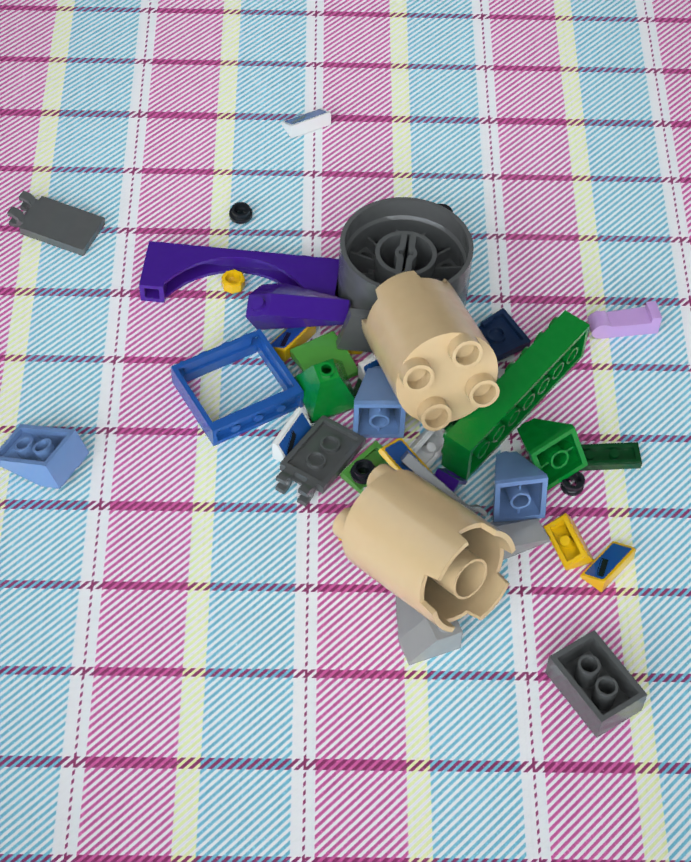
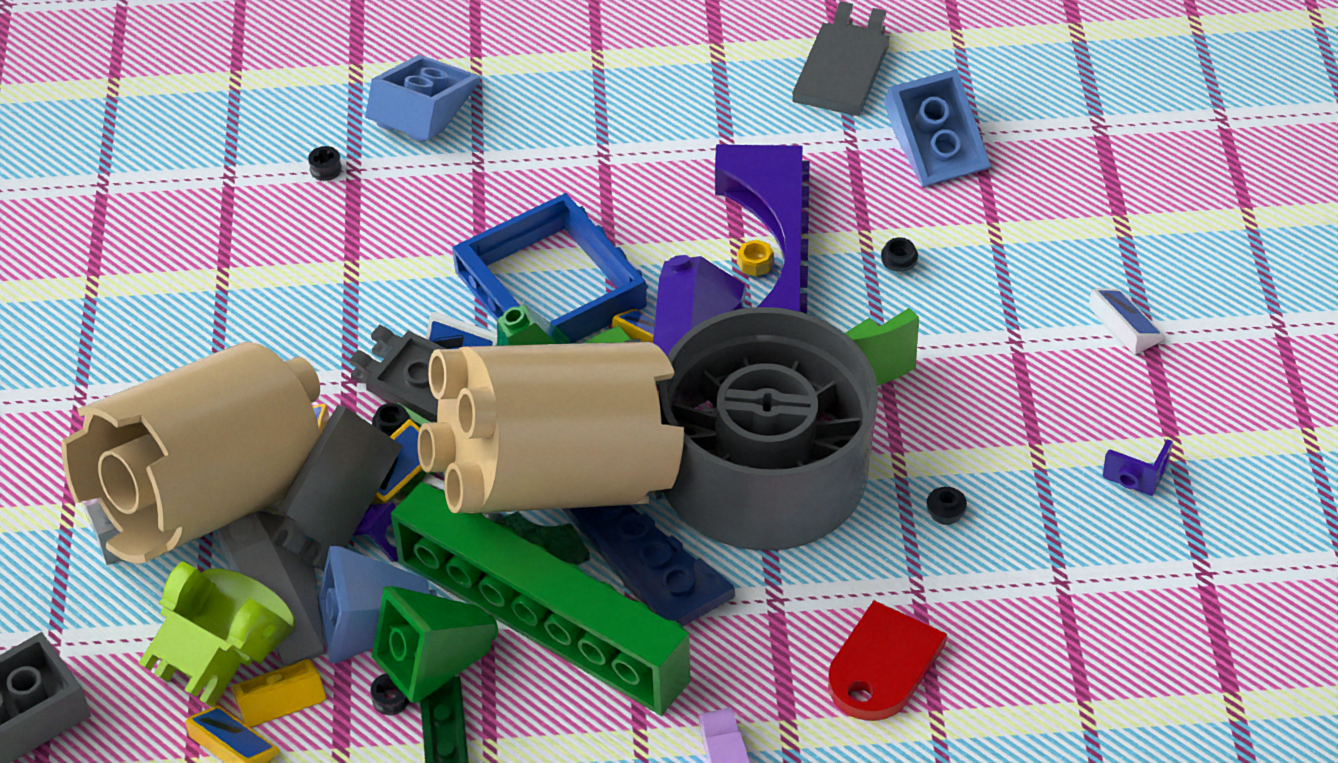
camera: 90 degrees right, 5 degrees down
(88, 515) = (326, 171): none -> black bush
(135, 181) = (936, 128): none -> medium blue slope
(332, 218) = (890, 346): none -> bright green slope
(427, 131) = (1136, 473): none -> dark purple bracket
(539, 563) = (214, 627): none -> lime piece
(549, 253) = (886, 658): none -> red tile

